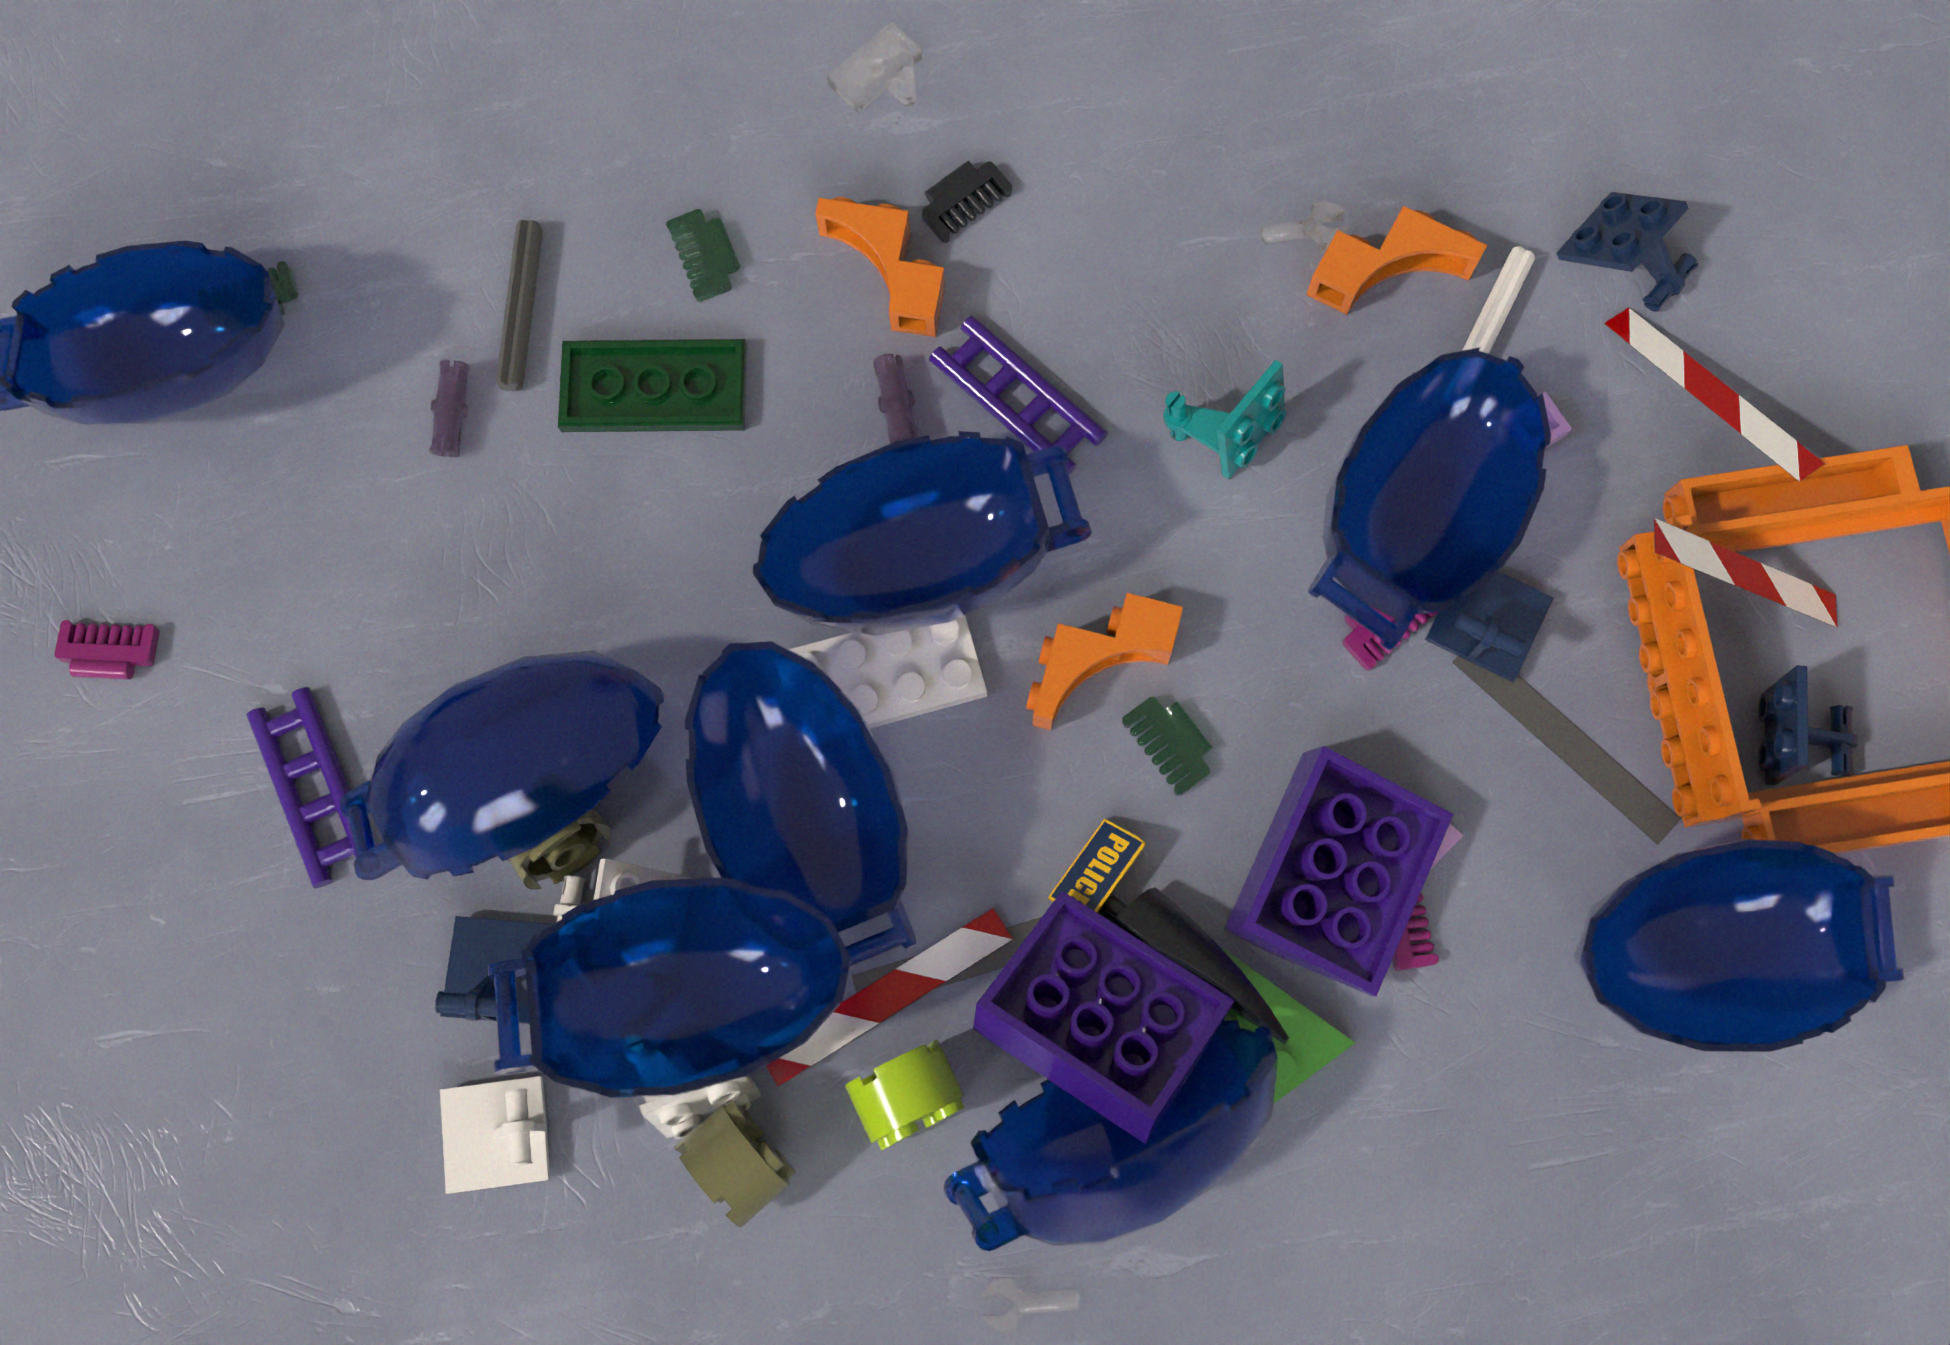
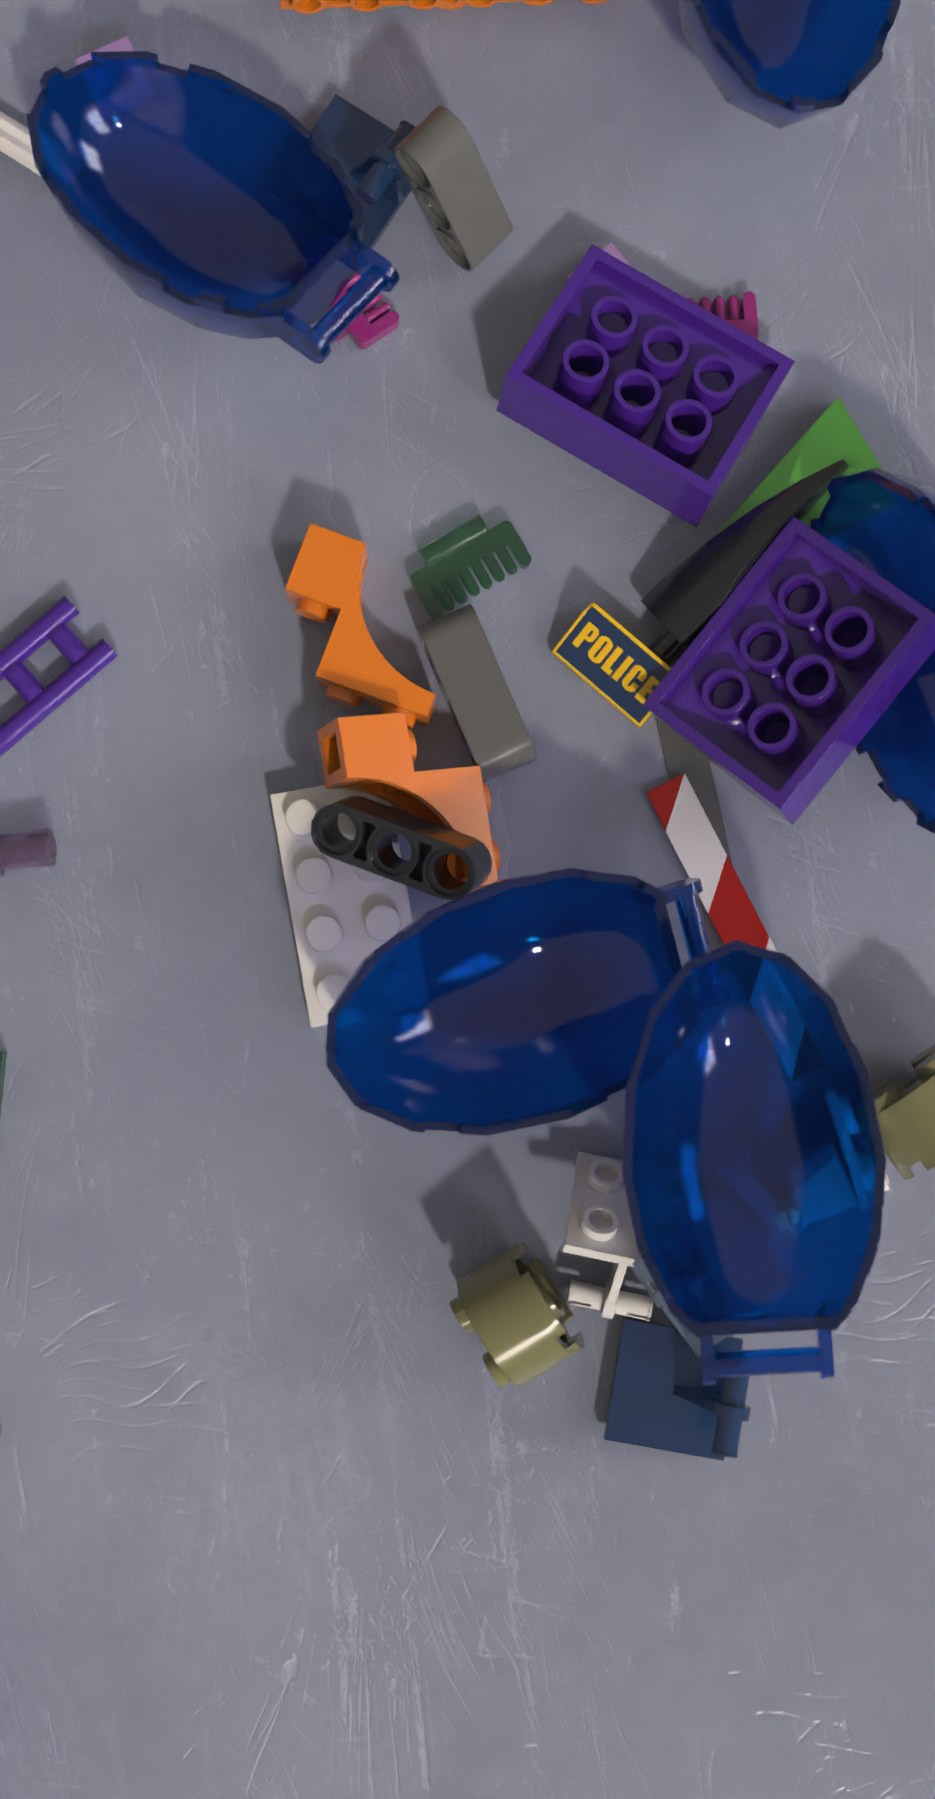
camera: 90 degrees left, 10 degrees up
(283, 773) = (405, 1656): dark purple bar -> none
(494, 1134) = (873, 1402): white plate -> none
(501, 763) = (436, 1367): clear blue windscreen -> none
(905, 1091) = (866, 905): lime brick -> none
(916, 533) = (190, 832): clear blue windscreen -> none
(921, 721) = (374, 850): none -> black beam
(965, 743) = (378, 757): none -> orange arch
(1060, 757) = (476, 692): none -> dark grey beam
(1236, 433) = (88, 446): teal plate -> none
(1478, 691) = (453, 188): none -> dark grey beam
(1576, 750) = (540, 84): dark grey sticker -> none

